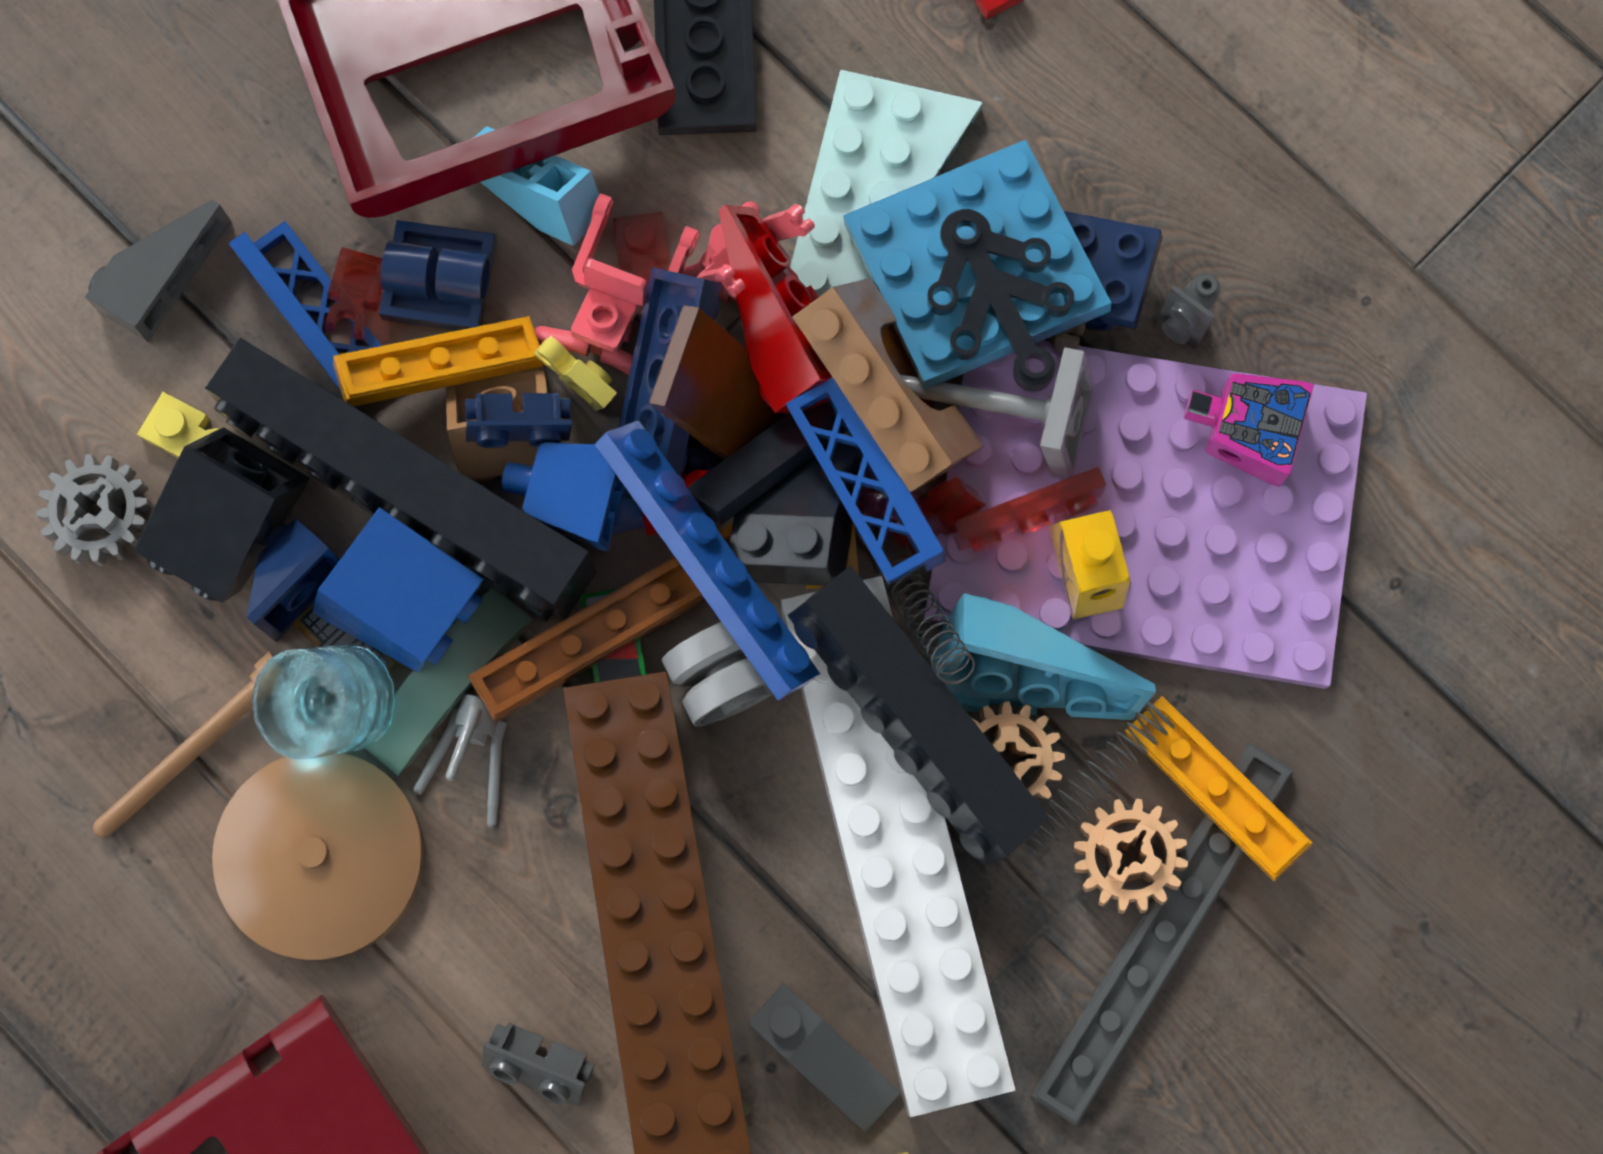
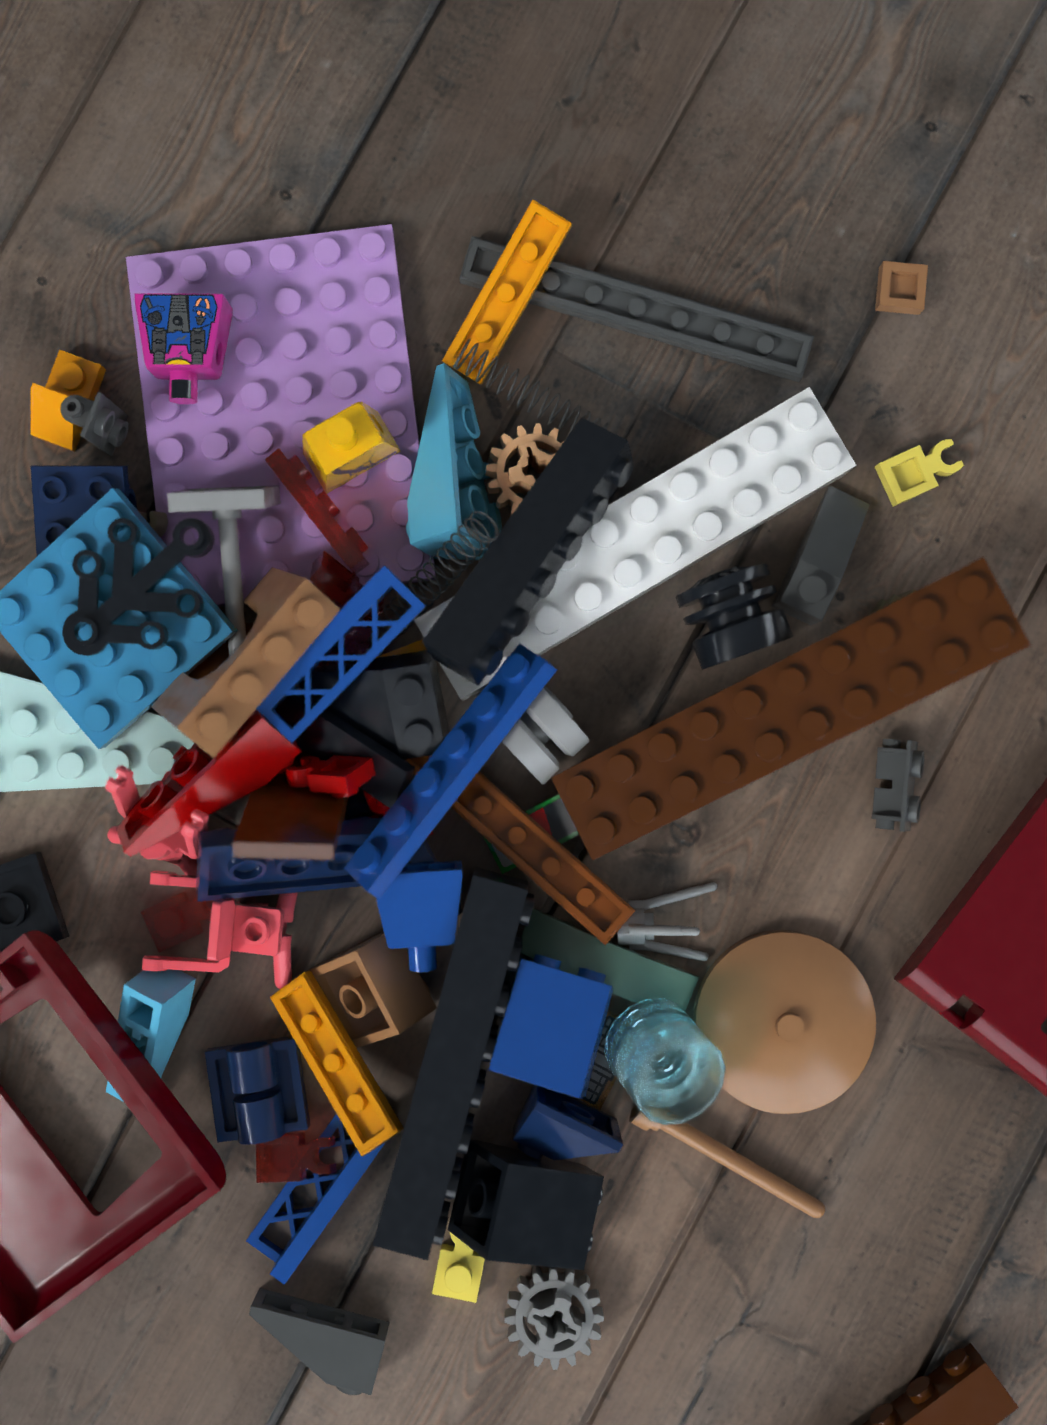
camera: 110 degrees left, 10 degrees up
(499, 424) = (369, 957): dark blue hinge -> none
(586, 380) = (313, 927): light yellow plate -> none
(737, 440) = (336, 775): none -> red plate
(782, 926) = (733, 615): none -> black wheel
(1110, 841) = (564, 344): light nougat gear -> none
(1243, 298) = (68, 377): none -> light orange slope

